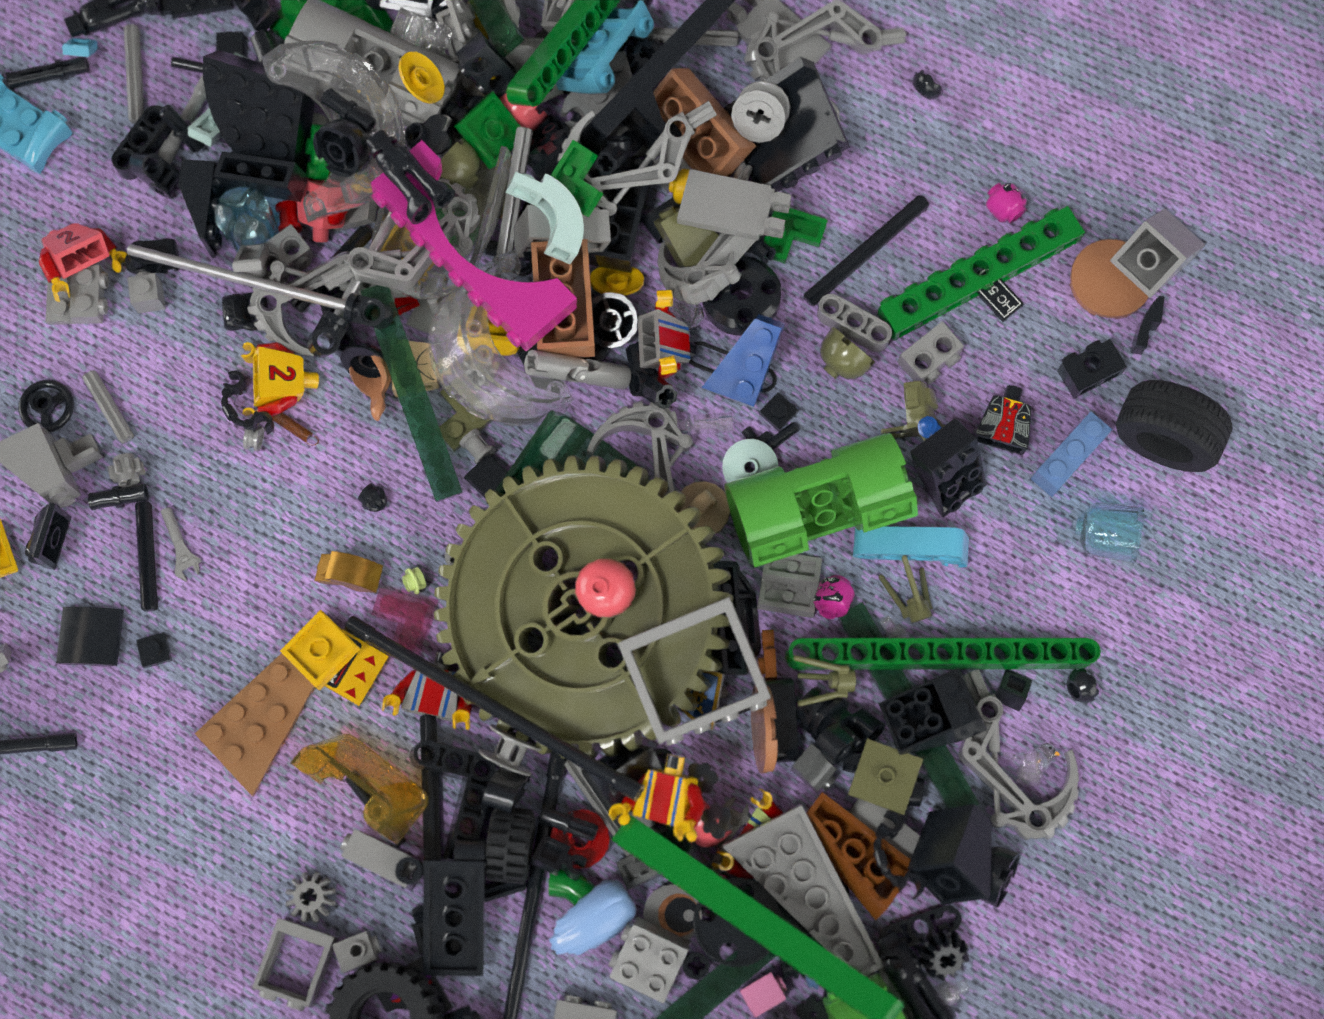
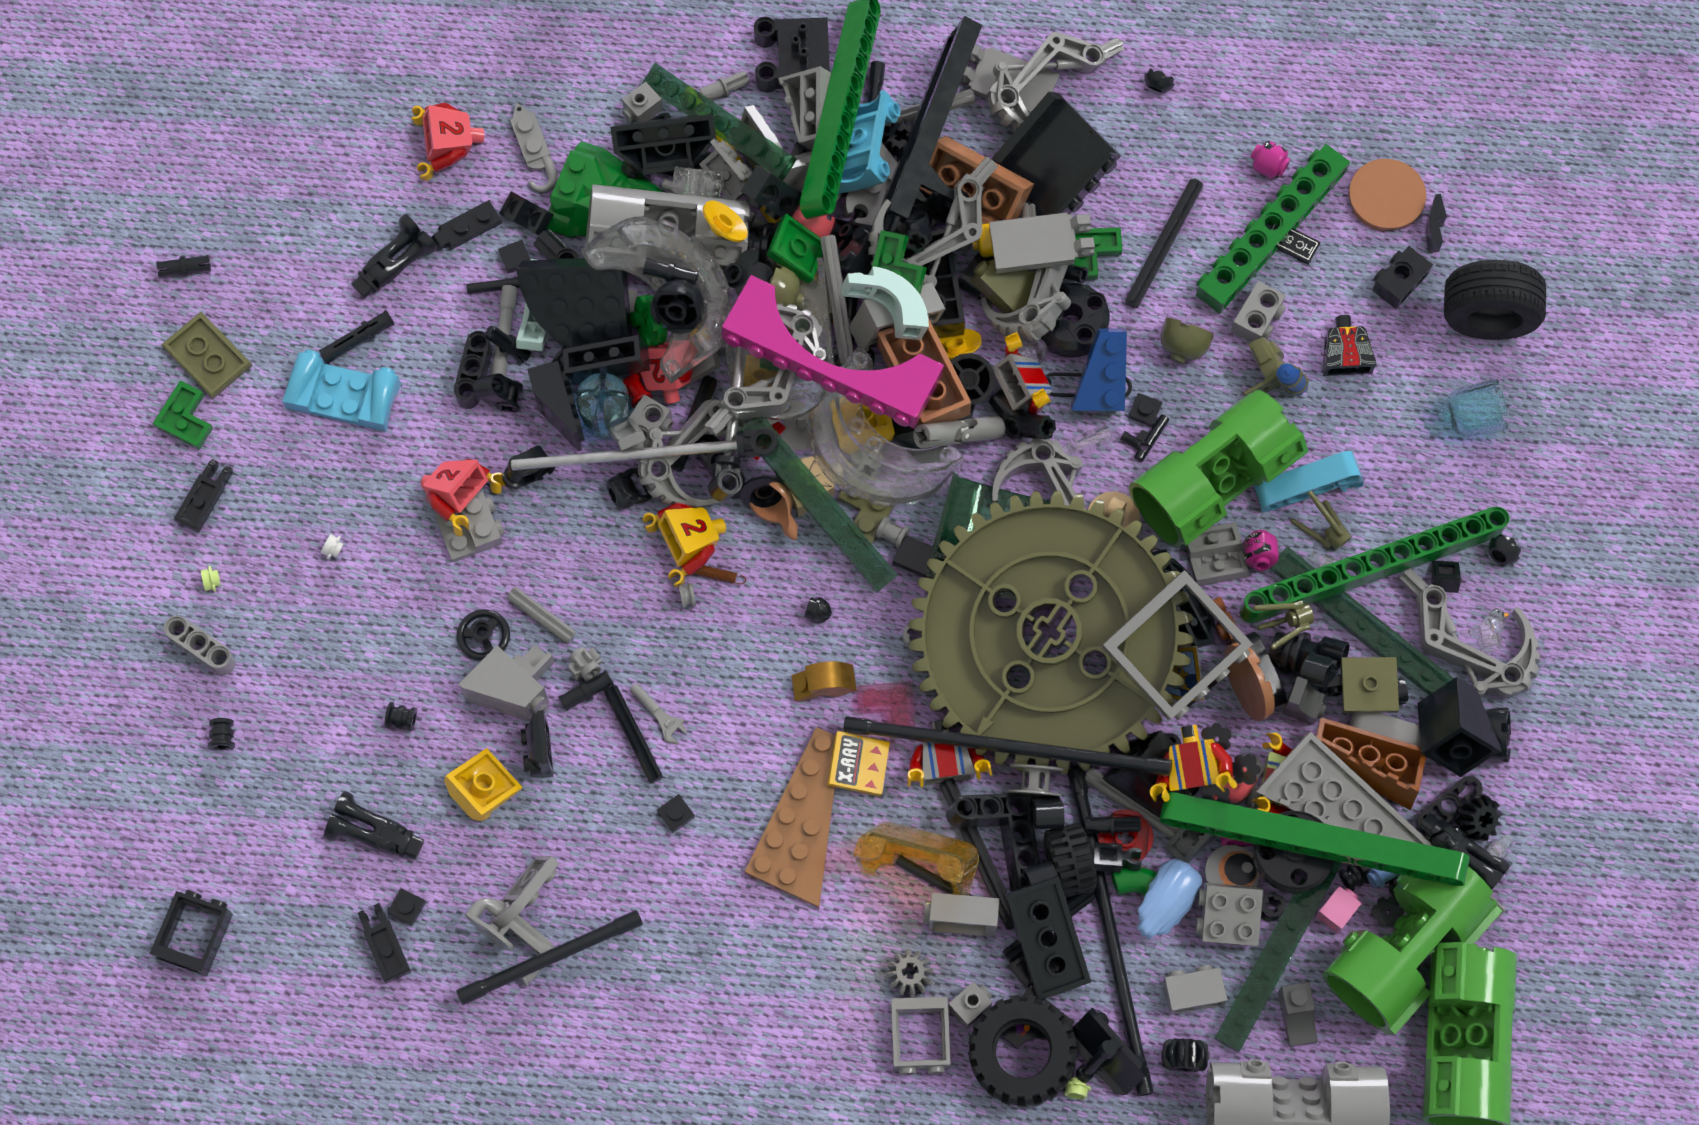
camera: 20 degrees left, 5 degrees down
(79, 47) = (377, 304): medium azure tile -> none
(90, 636) = (613, 821): black slope -> none
(133, 72) = (436, 311): light grey axle -> none
(146, 292) = (535, 501): light grey brick -> none
(231, 414) = (660, 580): black piece -> none
(320, 650) = (830, 755): yellow tile -> none
(396, 163) = (742, 300): black piece -> none
(400, 866) = (987, 908): black bush -> none
(414, 580) = (885, 668): yellowish green plate -> none
(605, 588) = (1070, 603): coral cylinder -> none
(747, 451) = (1128, 456): light aqua dish -> none
(759, 126) = (1041, 157): light grey piece -> none
(848, 311) = (1192, 304): light grey beam -> none
(882, 861) = (1388, 730): black piece -> none
(933, 714) = (1389, 616): black slope -> none
(950, 466) = (1317, 402): black slope -> none
(1071, 454) = (1415, 356): medium blue arch -> none
(1157, 252) = (1419, 158): light grey slope -> none

